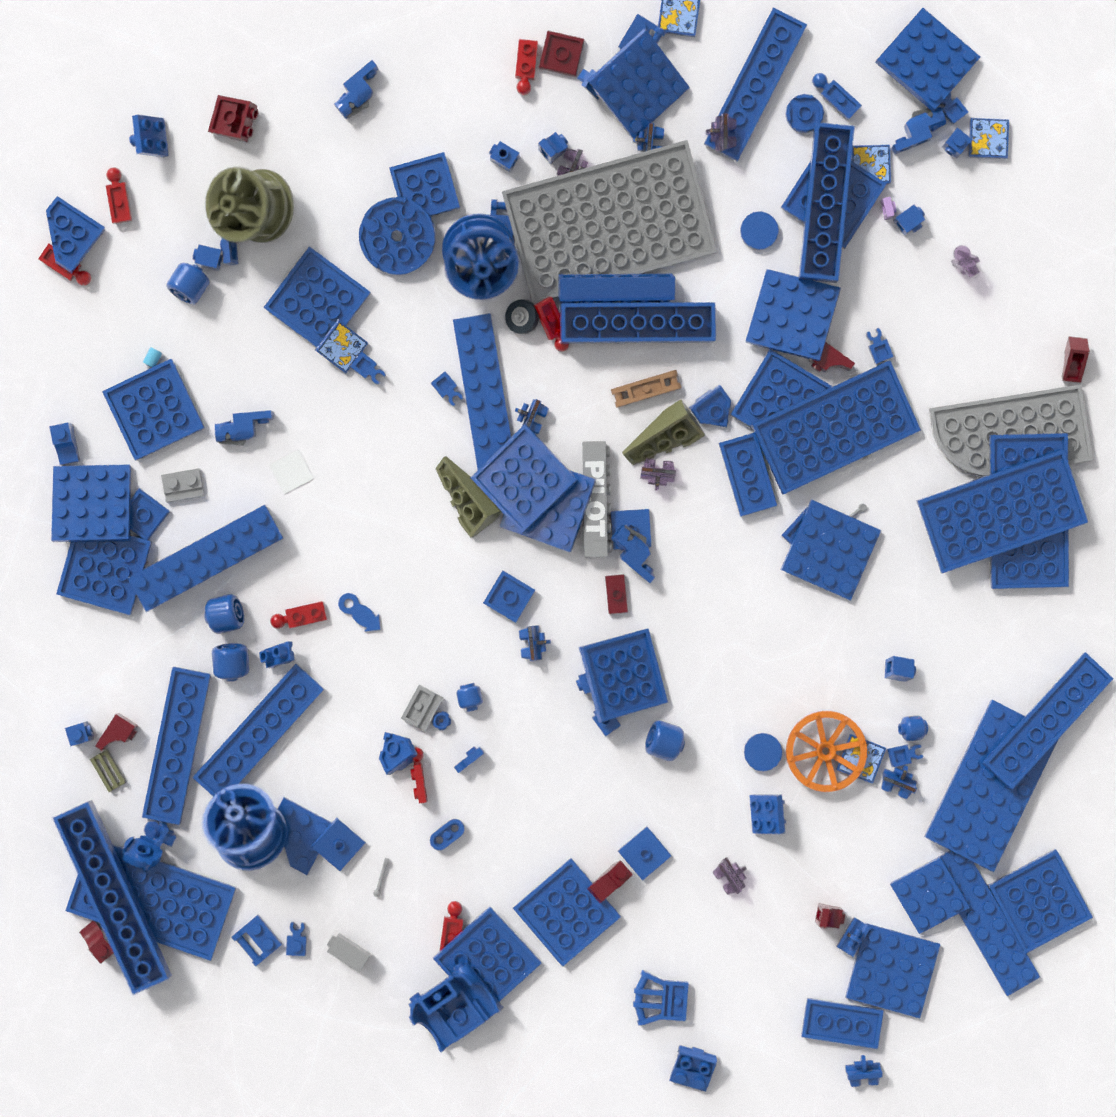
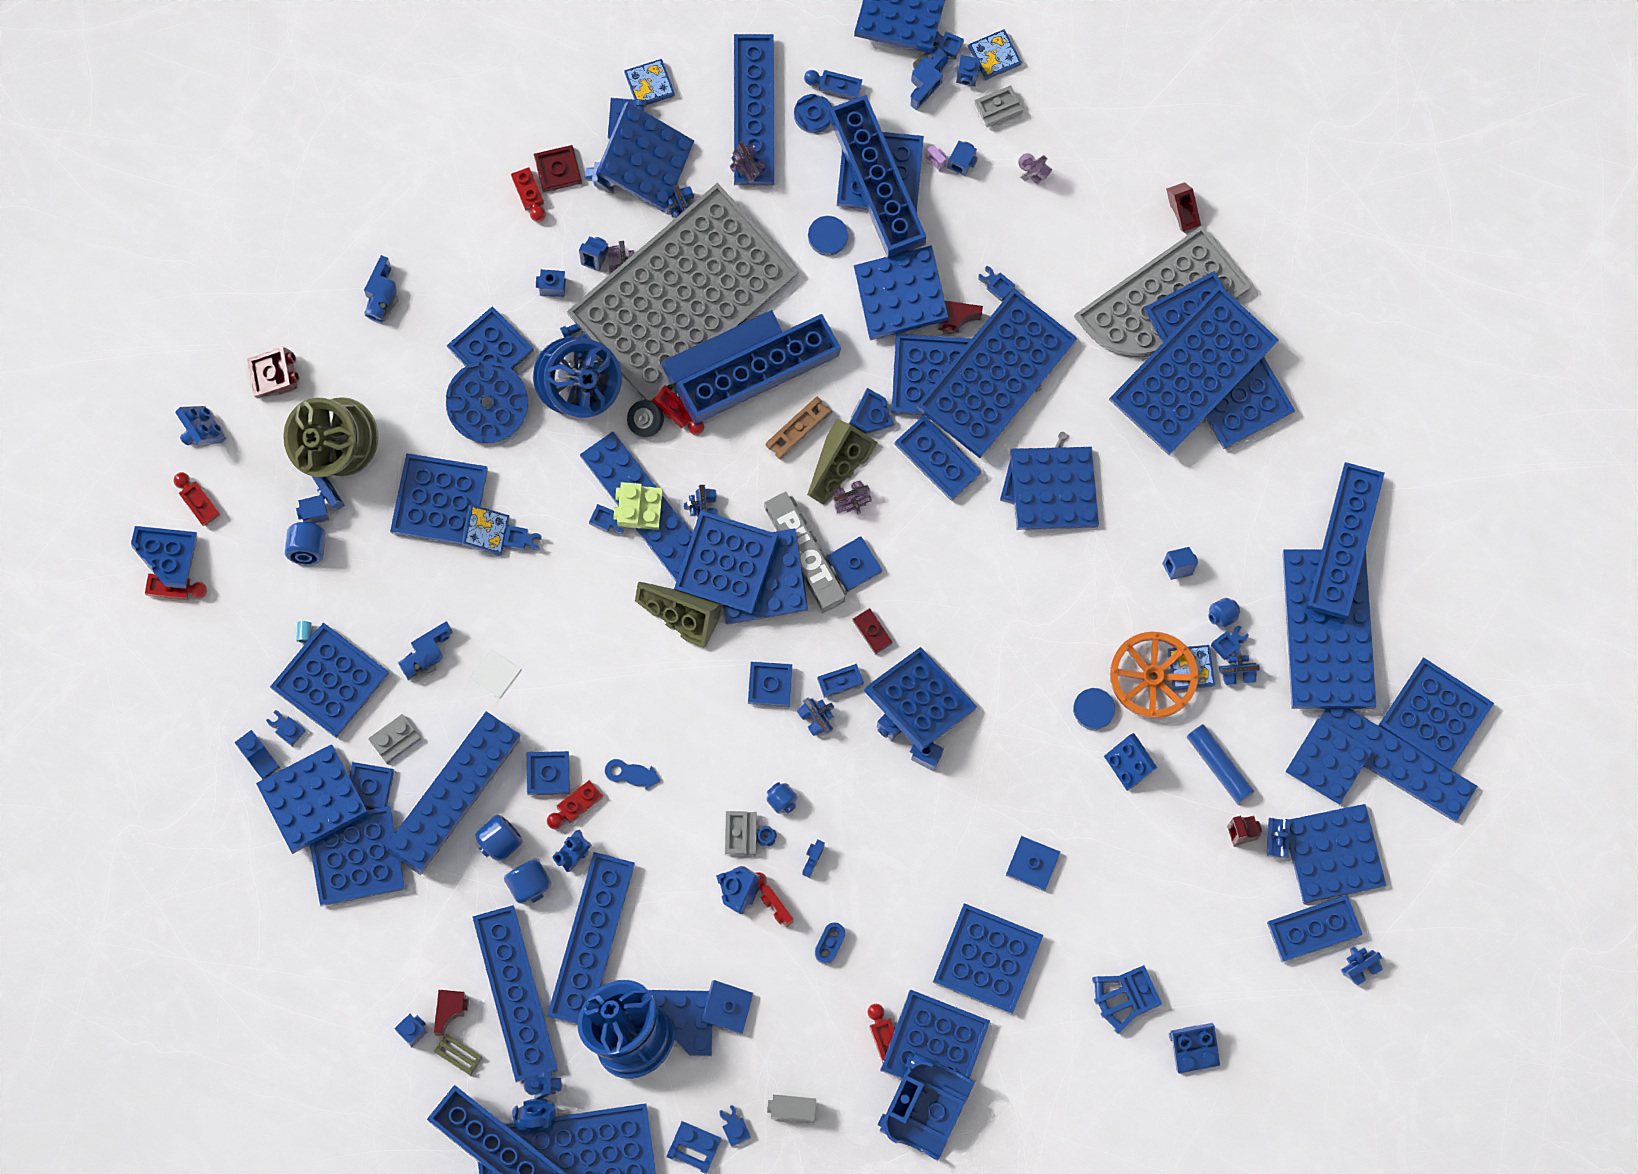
camera: 30 degrees left, 15 degrees down
(100, 433) = (287, 730): none -> blue plate
(291, 578) = (548, 773): none -> blue plate
(377, 893) = (790, 1037): light grey hinge -> none
(477, 391) = (638, 506): none -> yellowish green plate
(567, 623) = (840, 680): none -> blue plate
(610, 881) = (1014, 904): dark red arch -> none
(635, 551) = (868, 578): blue plate -> none
(664, 740) = (994, 743): blue head -> none
(733, 874) = (1119, 837): clear purple hips -> none
(841, 851) = (1220, 764): none -> blue brick
(874, 160) = (901, 121): tile -> none
(966, 188) = (998, 106): none -> light grey plate

